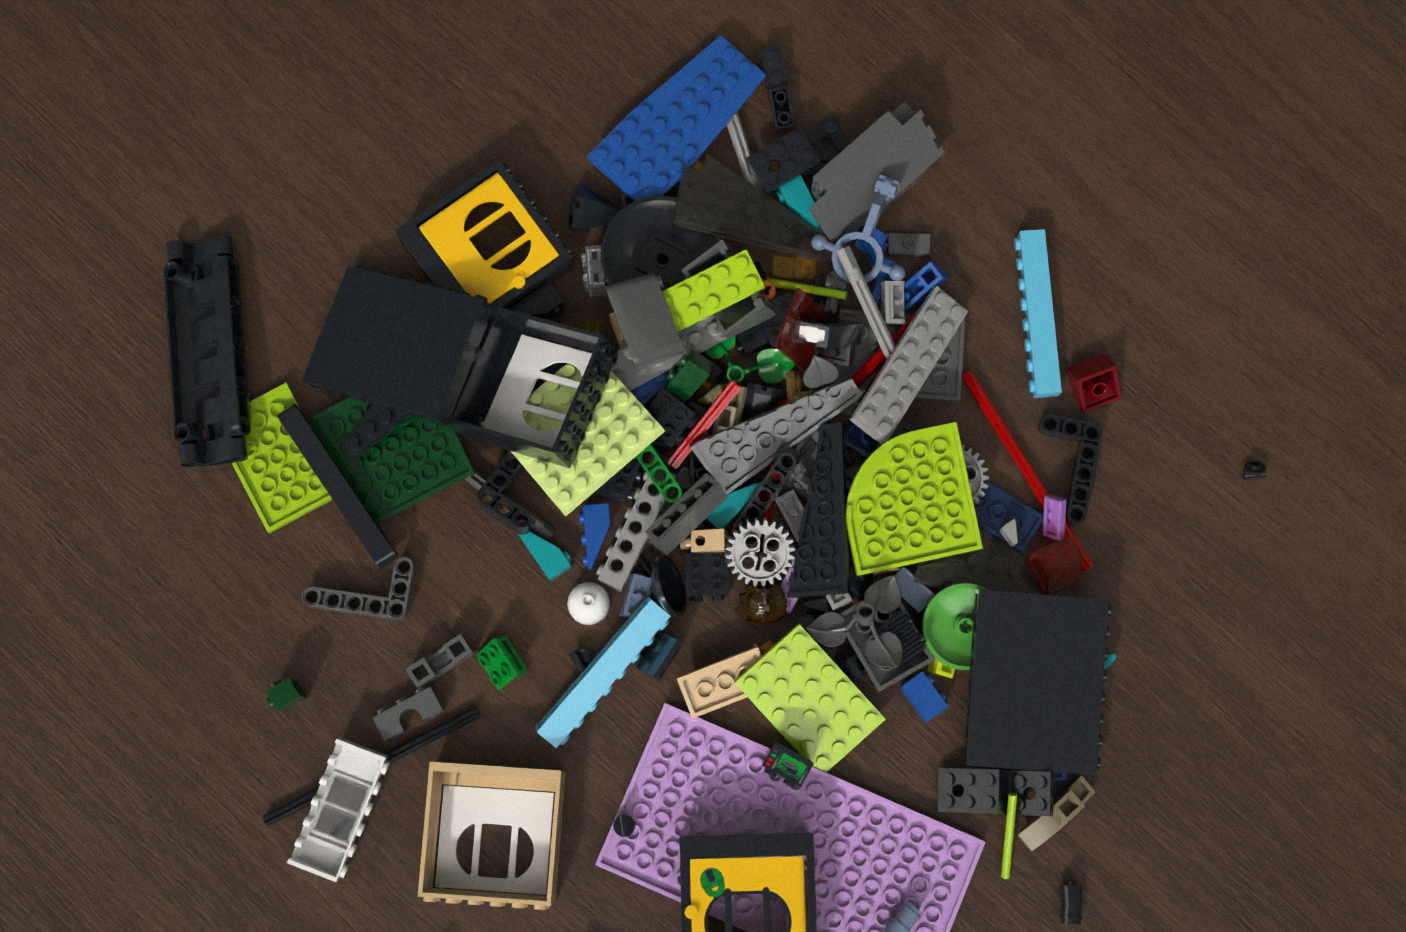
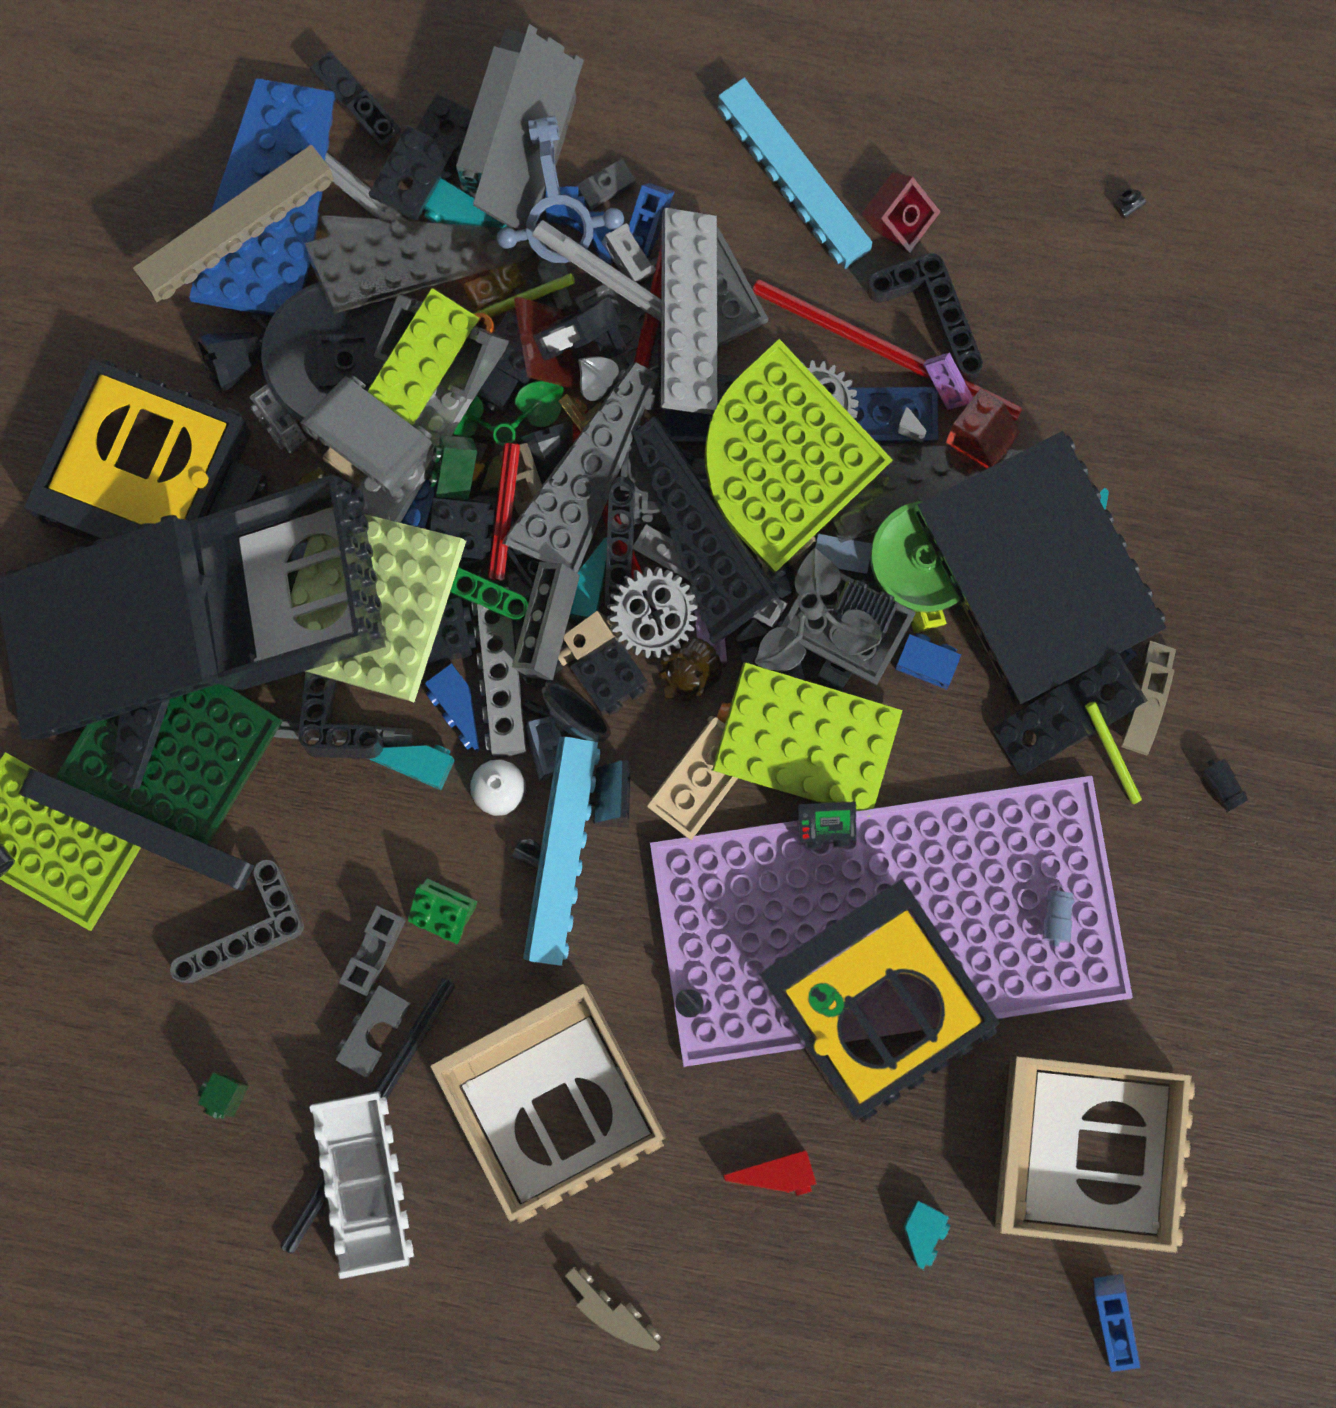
camera: 25 degrees left, 0 degrees up
(645, 125) = (234, 224): none -> dark tan brick

